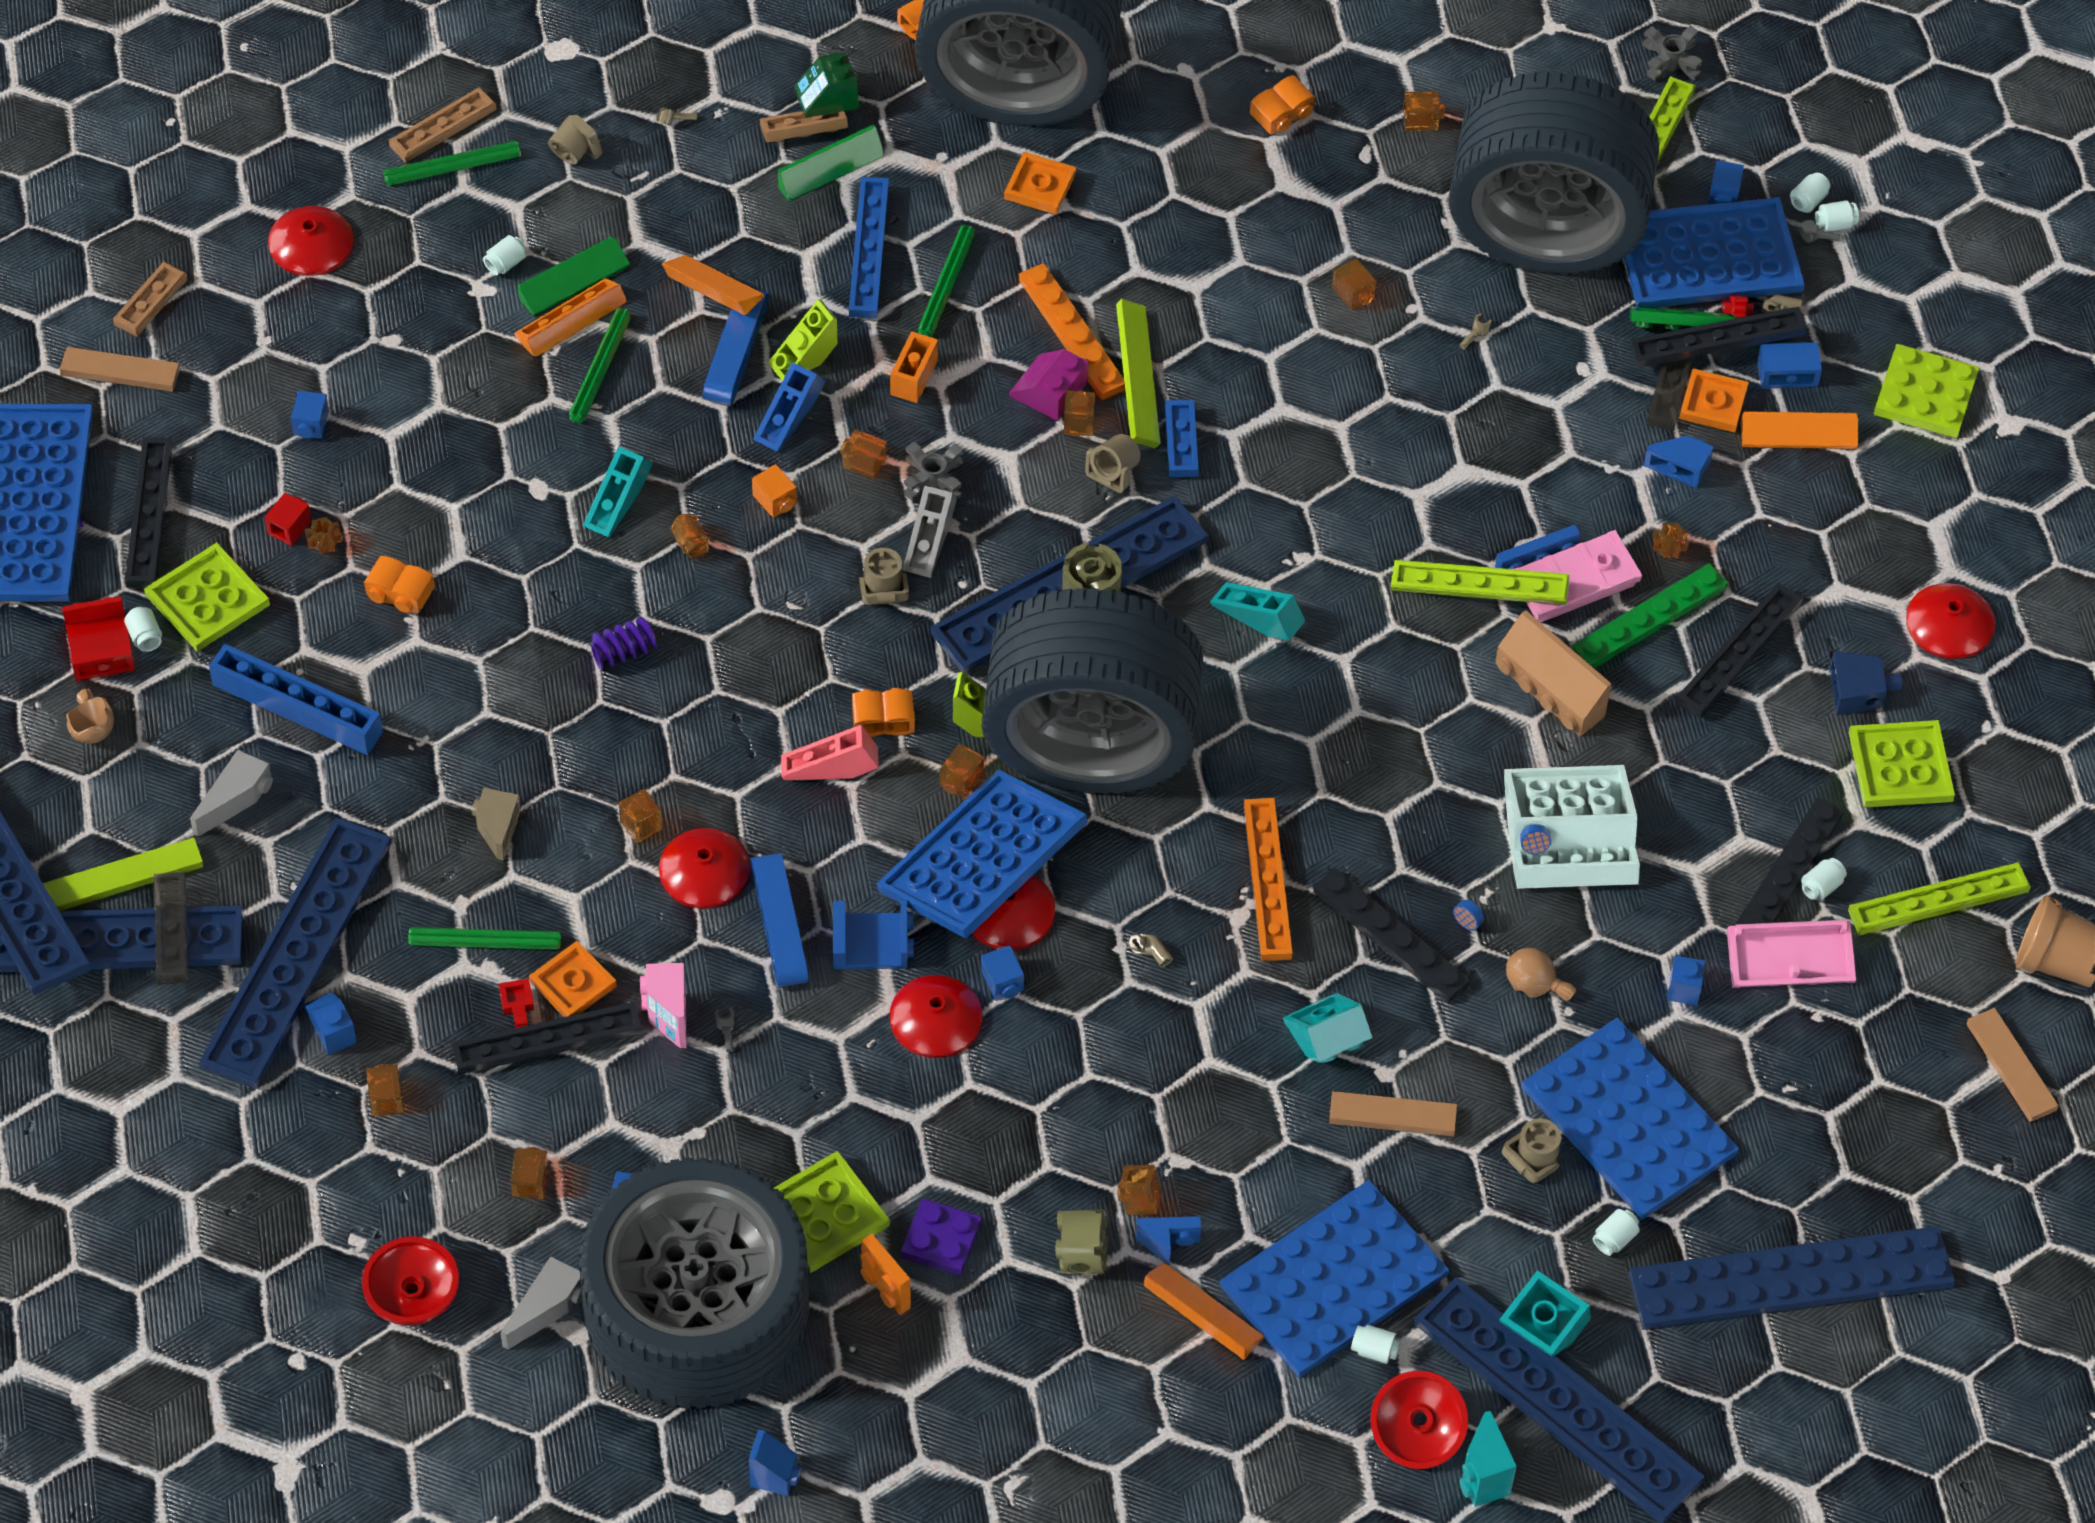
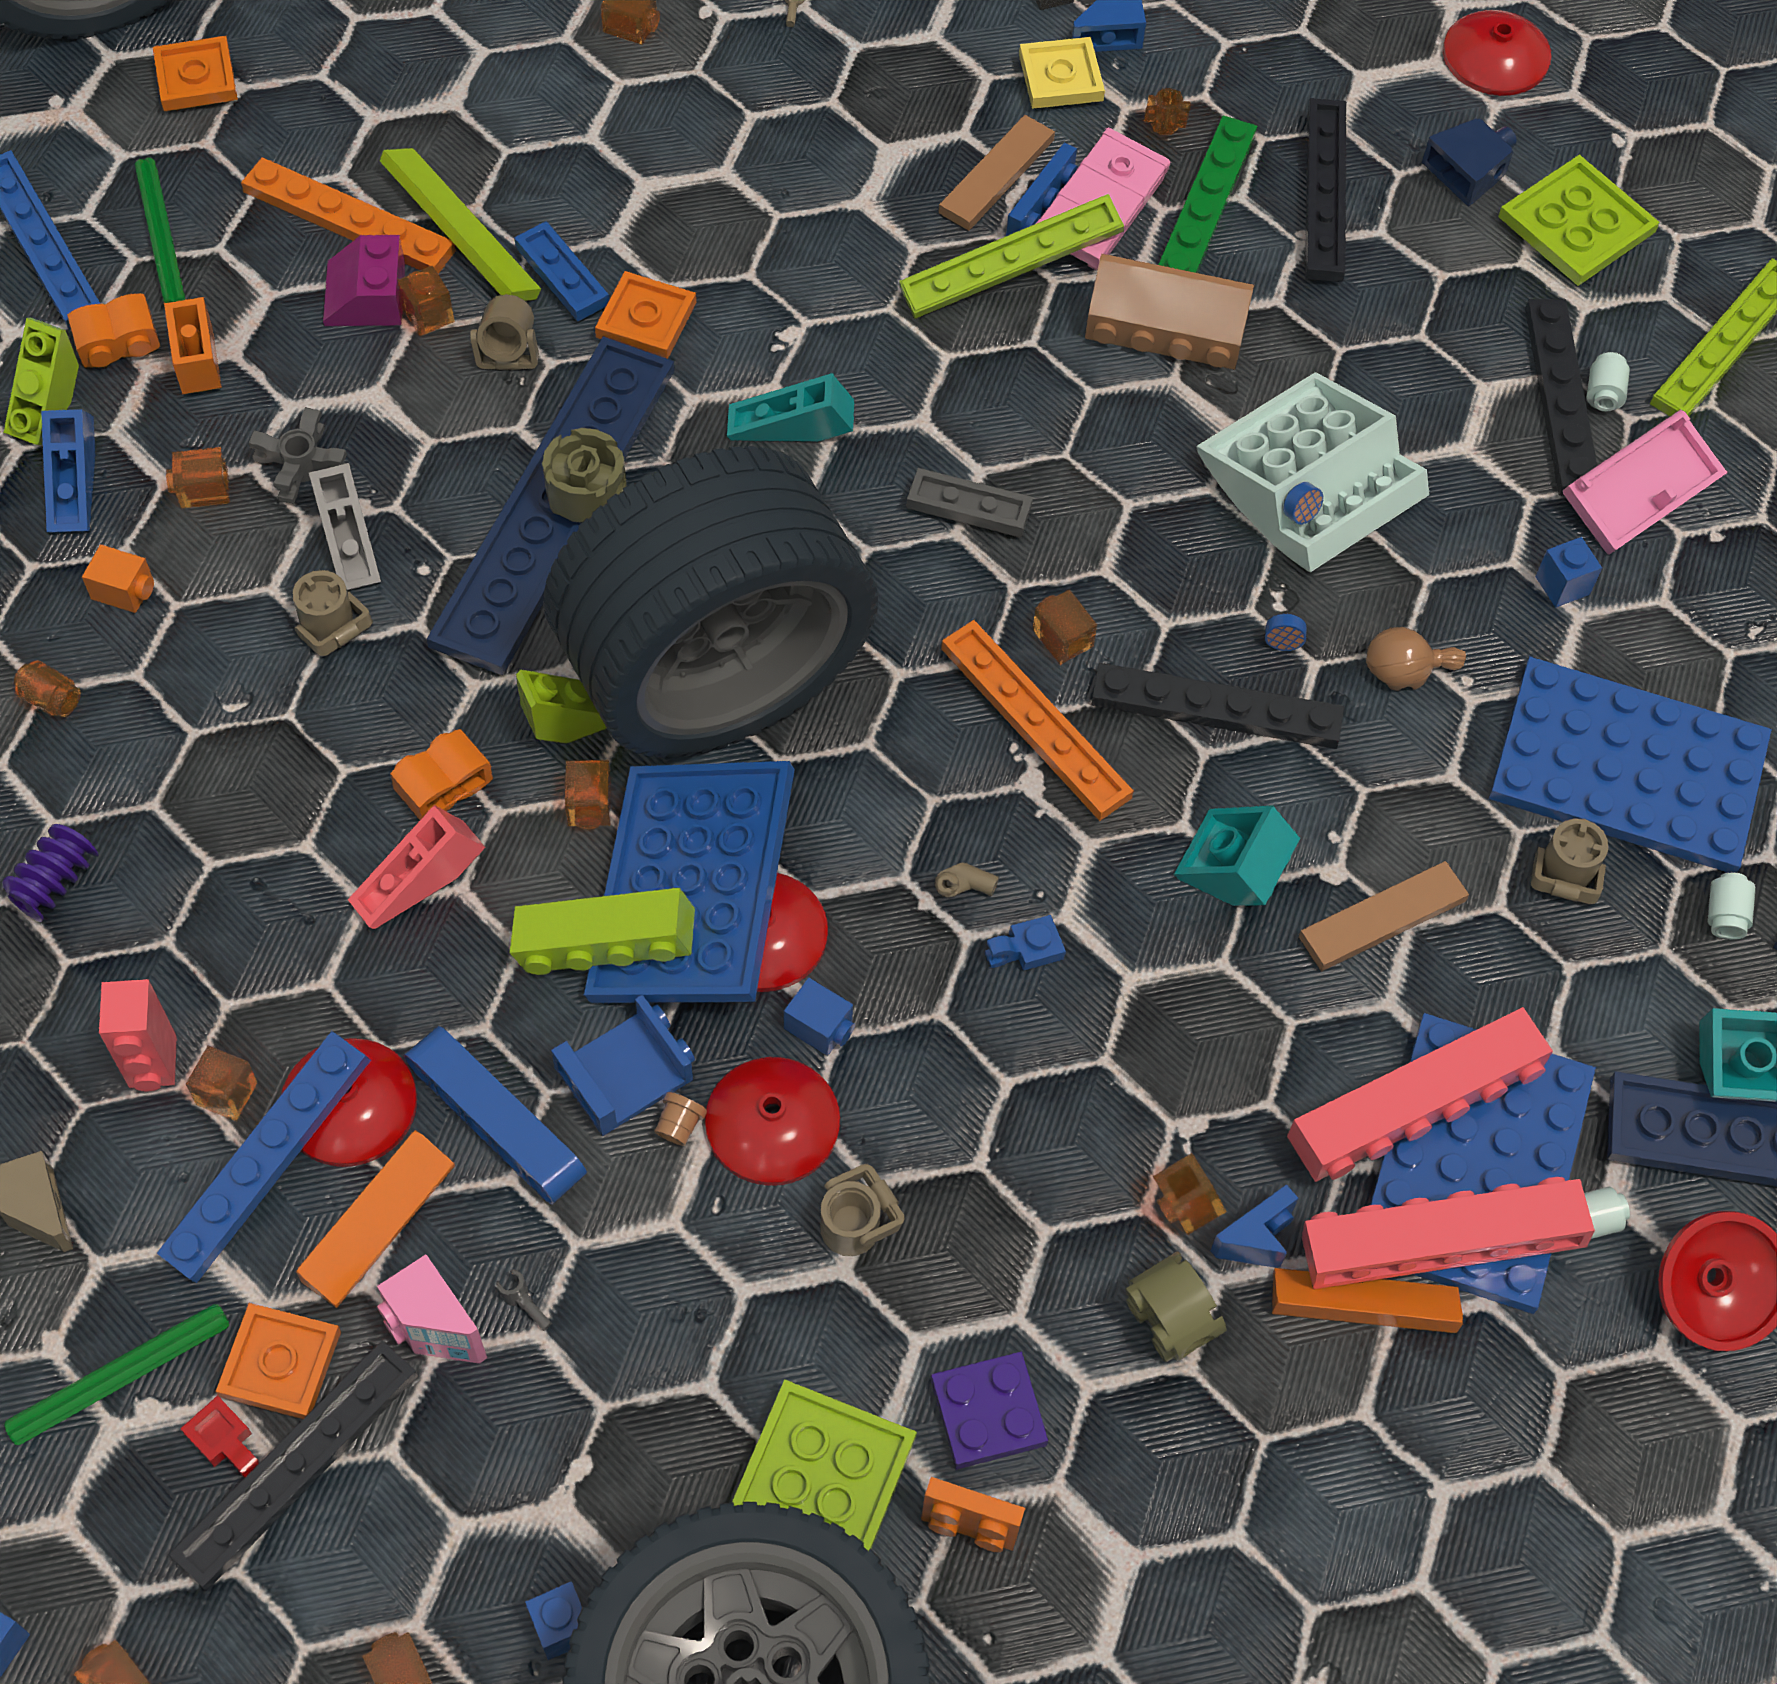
camera: 35 degrees left, 5 degrees up
(609, 760) = (138, 1034): none -> coral brick
(636, 867) = (263, 1157): none -> blue plate
(675, 937) = (374, 1219): none -> orange slope
(874, 331) = (113, 330): none -> orange brick
(881, 982) = (678, 1118): none -> medium nougat piece
(909, 851) = (603, 931): none -> lime brick
(938, 1088) = (853, 1211): none -> dark tan piece
(1163, 1006) = (1030, 942): none -> blue plate
(1214, 495) = (646, 314): none -> orange plate
(1270, 1294) = (1446, 1232): none -> coral brick
(1319, 1215) = (1419, 1094): none -> coral brick
(1329, 833) = (1064, 626): none -> clear orange brick
(1330, 725) = (969, 502): none -> dark grey plate
(1522, 521) = (996, 172): none -> medium nougat tile
(1620, 476) = (1061, 72): none -> light yellow plate

